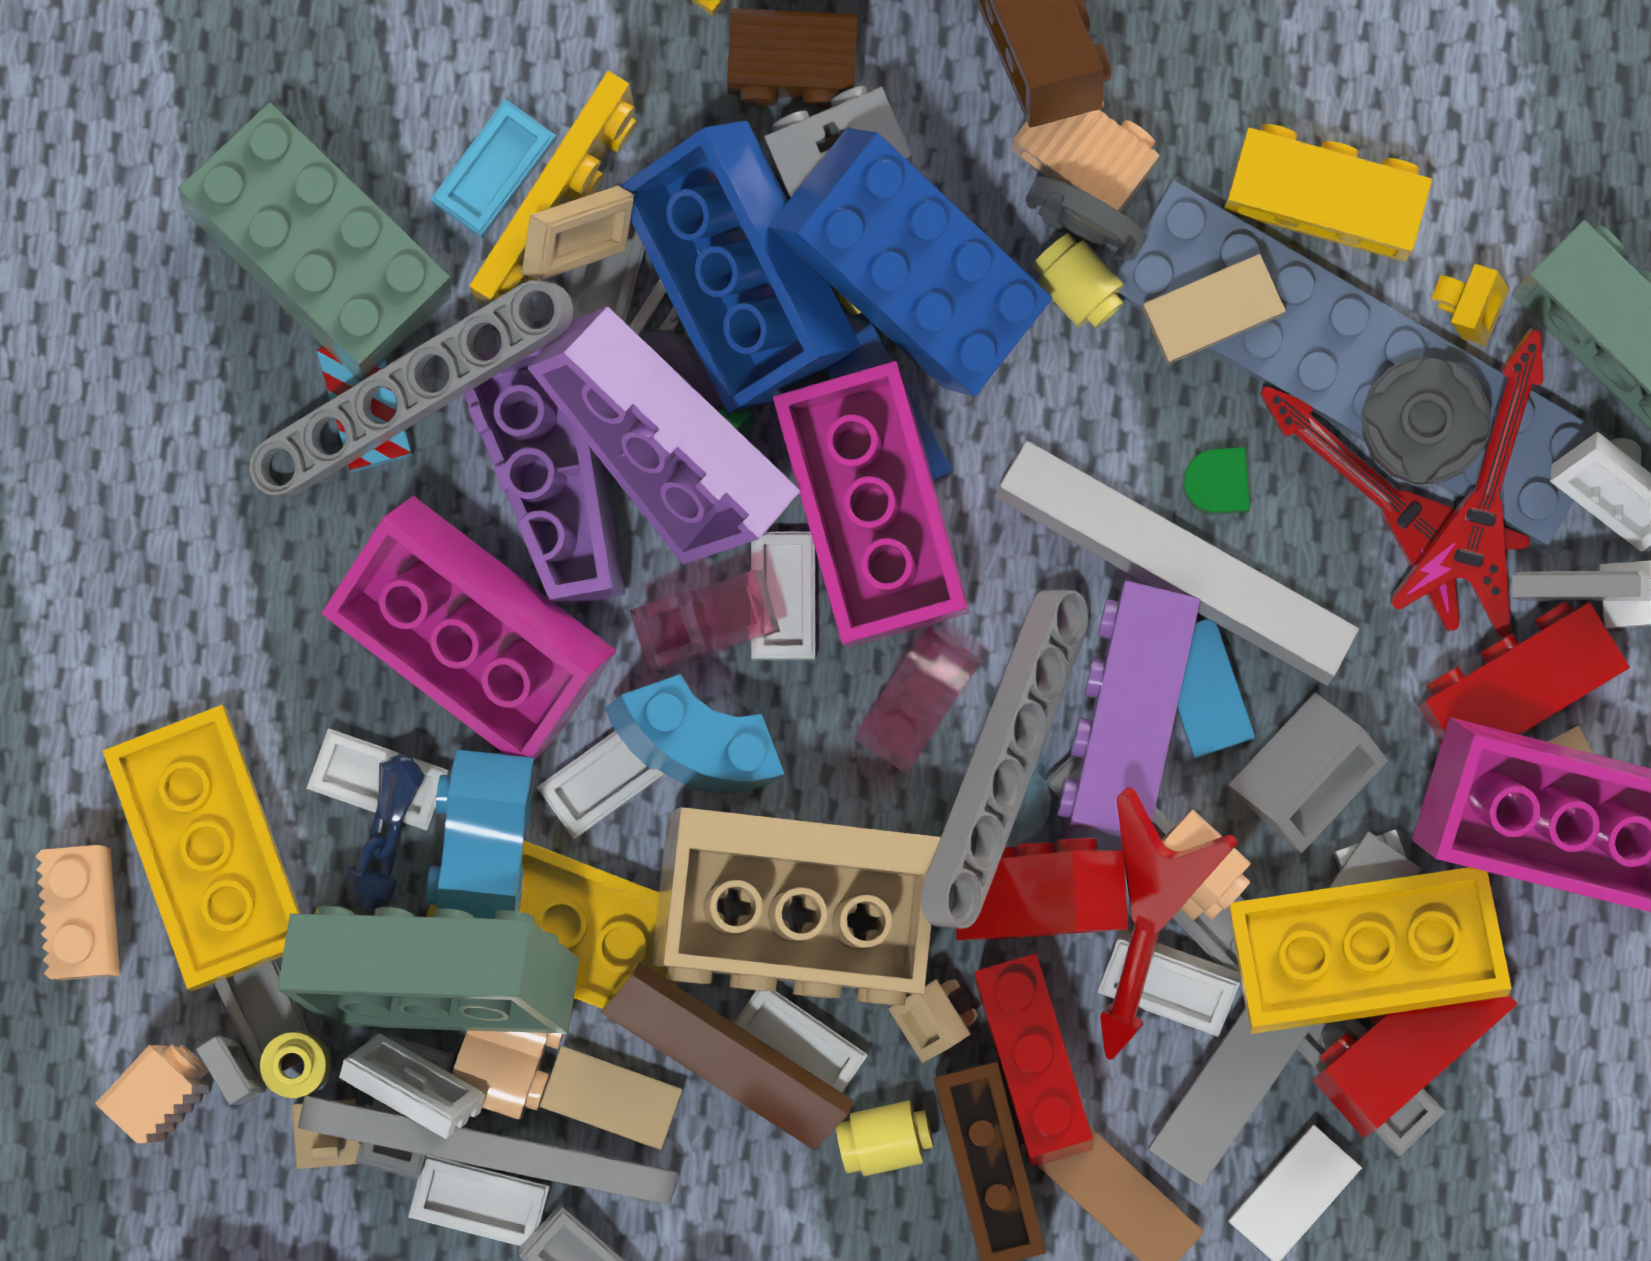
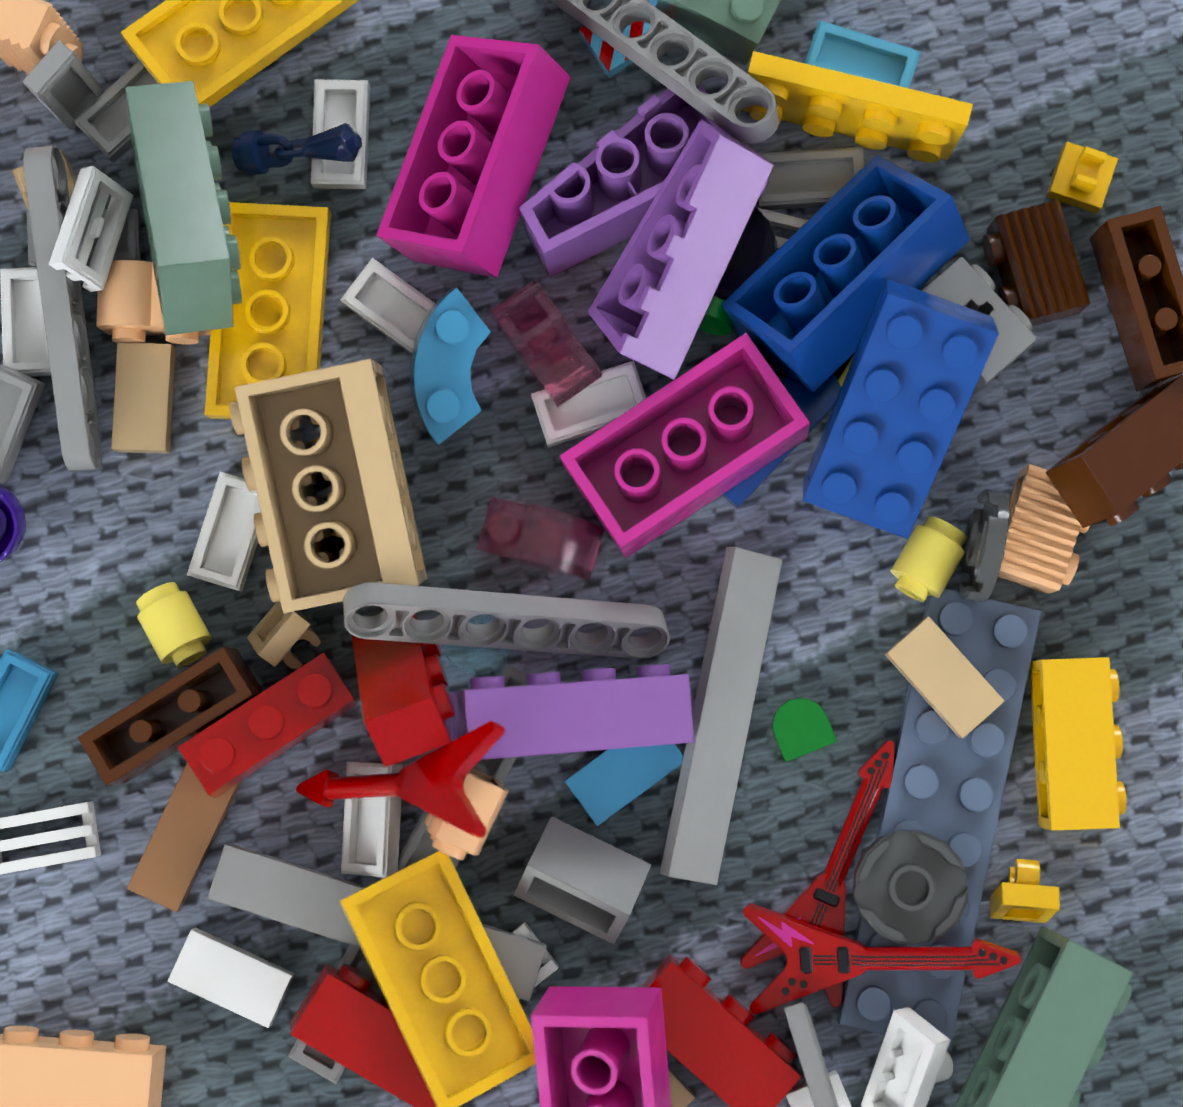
camera: 80 degrees right, 0 degrees up
(315, 1058) = (83, 133): light yellow brick -> none
(484, 833) = (304, 219): dark azure brick -> none
(577, 233) = (827, 128): tan tile -> none
(726, 1056) = (196, 476): reddish brown tile -> none

